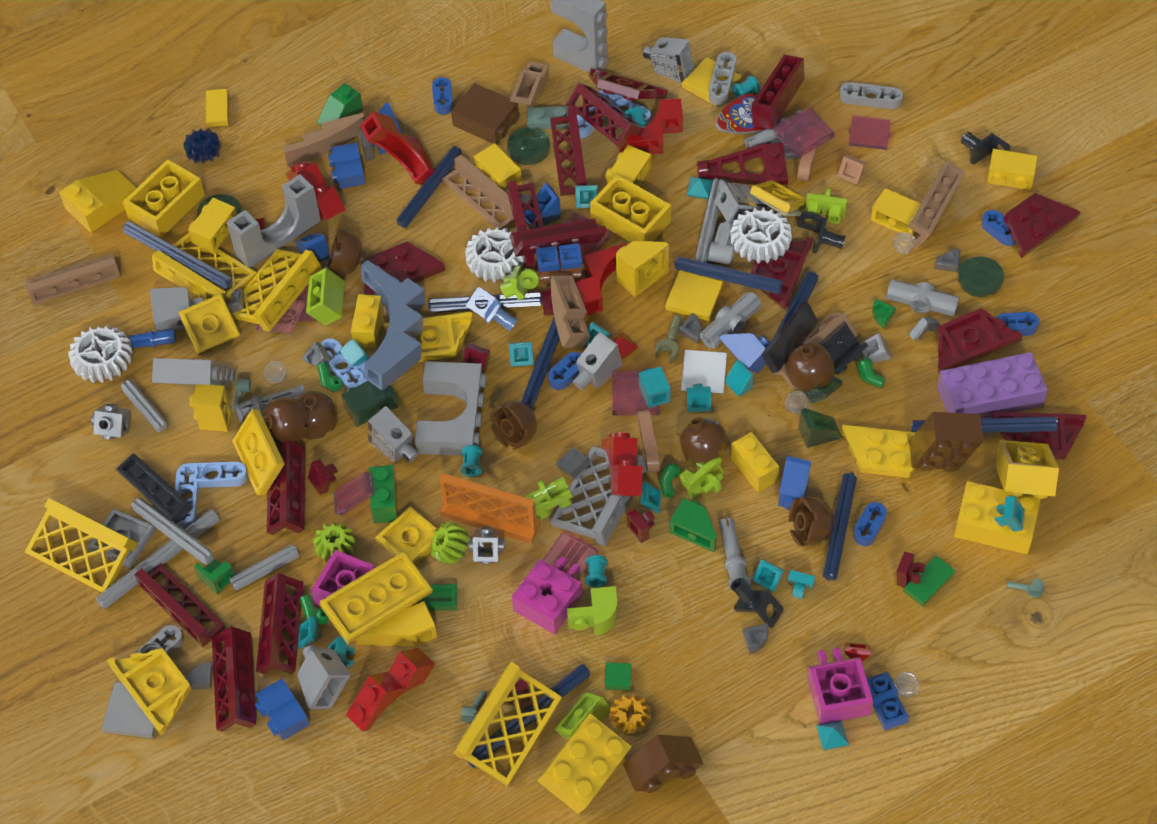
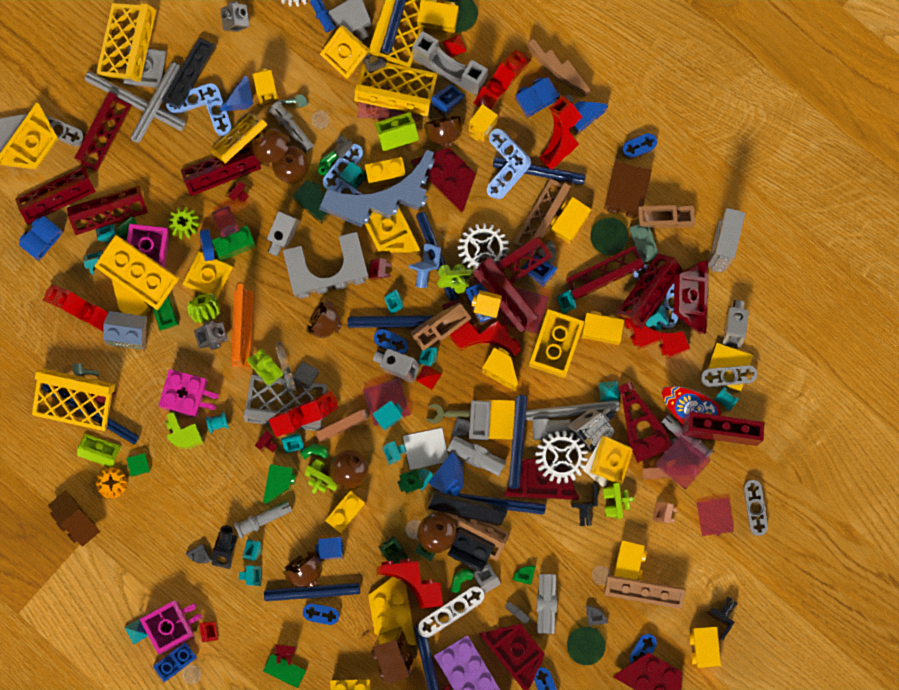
camera: 70 degrees right, 25 degrees up
(144, 405) = (261, 33): light grey axle -> none
(193, 372) = (270, 72): light grey arch -> none
(201, 676) = (51, 171): flat silver tile -> none
(207, 441) = (239, 98): none -> blue slope
(215, 575) = (132, 149): green panel -> none
(264, 567) = (151, 180): light grey axle -> none
(322, 677) = (70, 256): light grey torso -> none
(341, 103) = (594, 67): green slope -> none
(354, 212) = (482, 123): none -> yellow brick
(373, 522) = (206, 244): none -> blue beam
(414, 200) = (513, 164): none -> light blue beam
(445, 633) = (125, 330): none -> sand blue slope
(471, 461) = (284, 298): teal bush -> none
(564, 241) = (486, 303): none -> yellow brick
(572, 475) = (285, 366): none -> clear tile
(572, 549) = (230, 397): clear pink piece -> none
(584, 763) = (56, 463): yellow brick -> none
(690, 305) = (479, 420): none -> light grey tile
(740, 387) = (410, 481): none -> dark green bracket
(853, 413) = (427, 594): none -> red arch
(908, 387) = (452, 613): none -> white beam

